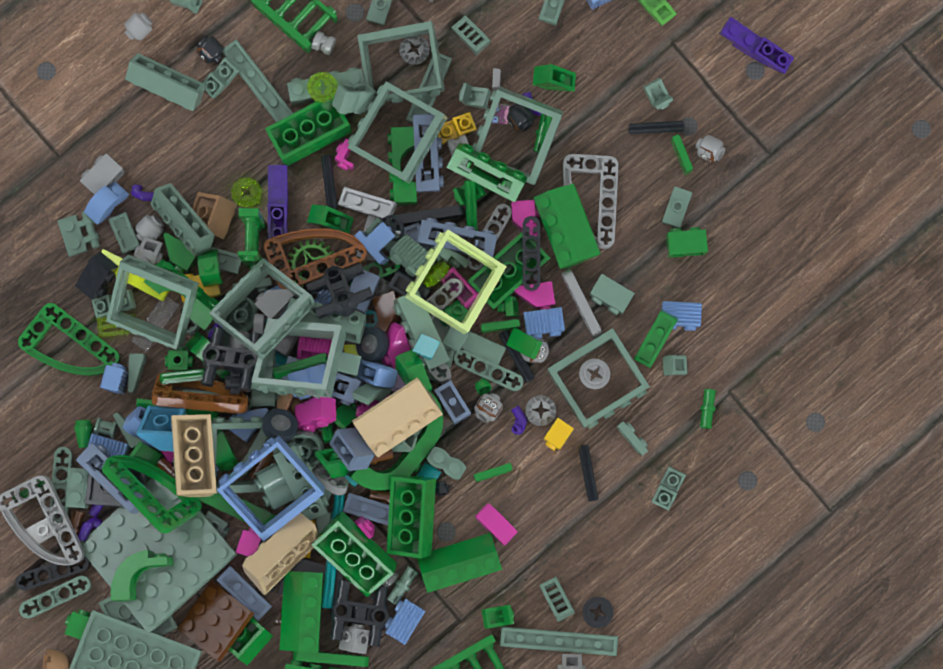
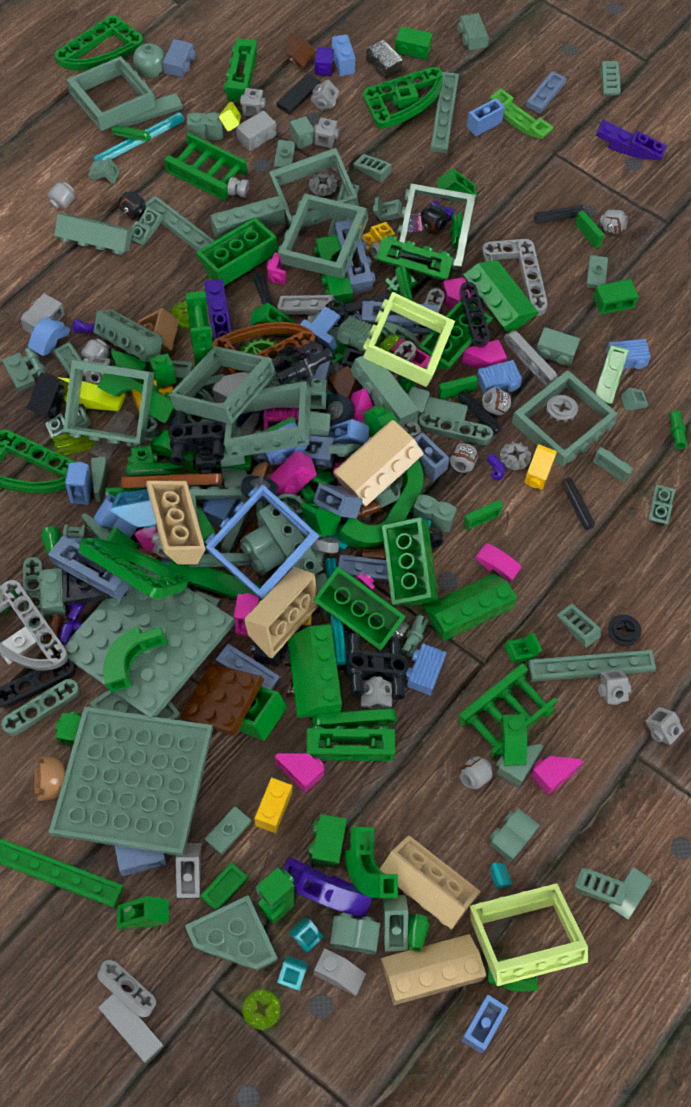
camera: 10 degrees left, 20 degrees down
(315, 81) = (250, 205): clear neon green gear -> none
(353, 98) = (275, 214): sand green brick -> none
(426, 346) = (393, 396): slope -> none
(483, 386) = (453, 438): green hinge -> none
(496, 79) = (402, 190): light grey tile -> none
(510, 307) = (462, 370): green tile -> none
(524, 343) = (487, 390): green tile -> none
(657, 94) = (553, 187): sand green bracket -> none

